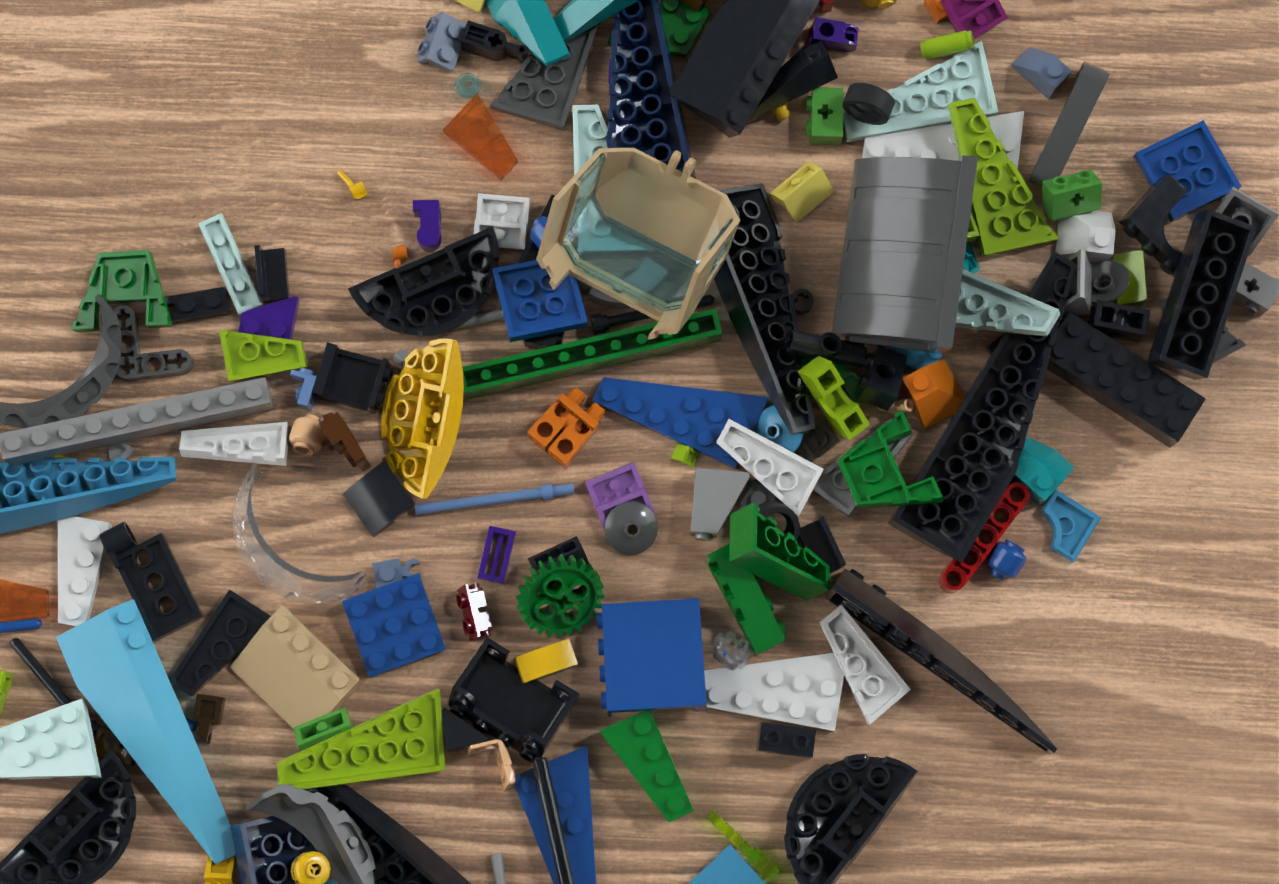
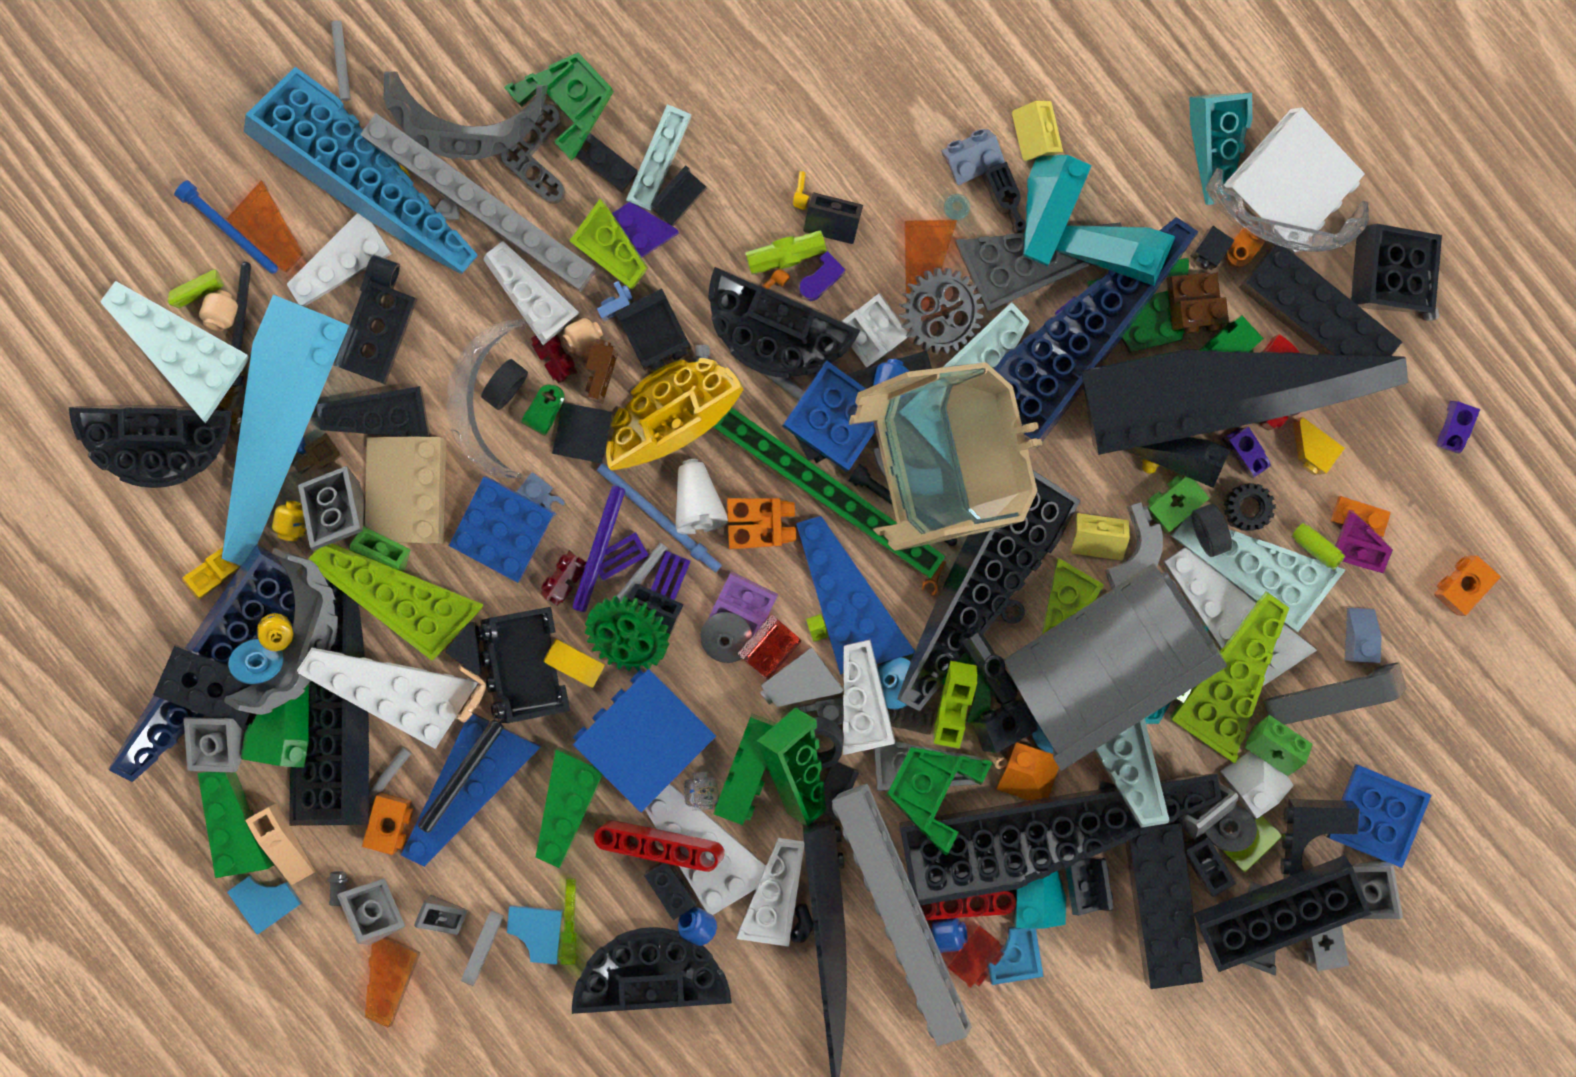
camera: 45 degrees right, 10 degrees up
(28, 692) = (218, 310): none -> light nougat head
(237, 782) = (289, 521): none -> yellow head
(256, 736) = (332, 507): none -> dark grey slope
(288, 522) = (504, 384): none -> black tyre
(311, 469) = (560, 363): none -> dark red hinge
(334, 516) = (542, 414): none -> green piece
(386, 233) = (786, 252): none -> lime piece
(393, 178) = (833, 217): none -> black panel
(452, 814) = (401, 695): none -> white wing
(476, 563) = (598, 548): none -> dark purple axle
(509, 456) = (697, 500): none -> white cone
(523, 543) = (643, 571): none -> light grey bar
(538, 513) = (677, 559): none -> dark purple tile
(554, 168) = (934, 288): none -> dark grey gear
(667, 500) = (769, 647): none -> clear red bracket
(725, 337) = (934, 578): none -> orange hand
(740, 730) = (647, 849): none -> red beam
(823, 248) = (1069, 593): none -> lime wing
(833, 745) = (697, 926): none -> blue head
(839, 162) = (1147, 549): none -> light grey arch
(882, 56) = (1265, 507): none -> black tyre
(904, 663) = (804, 925): none -> black arm
(961, 575) = (901, 914): none -> light grey brick
(1042, 553) = (976, 957): none -> clear red bracket
(1059, 421) = (1089, 886): none -> black bracket

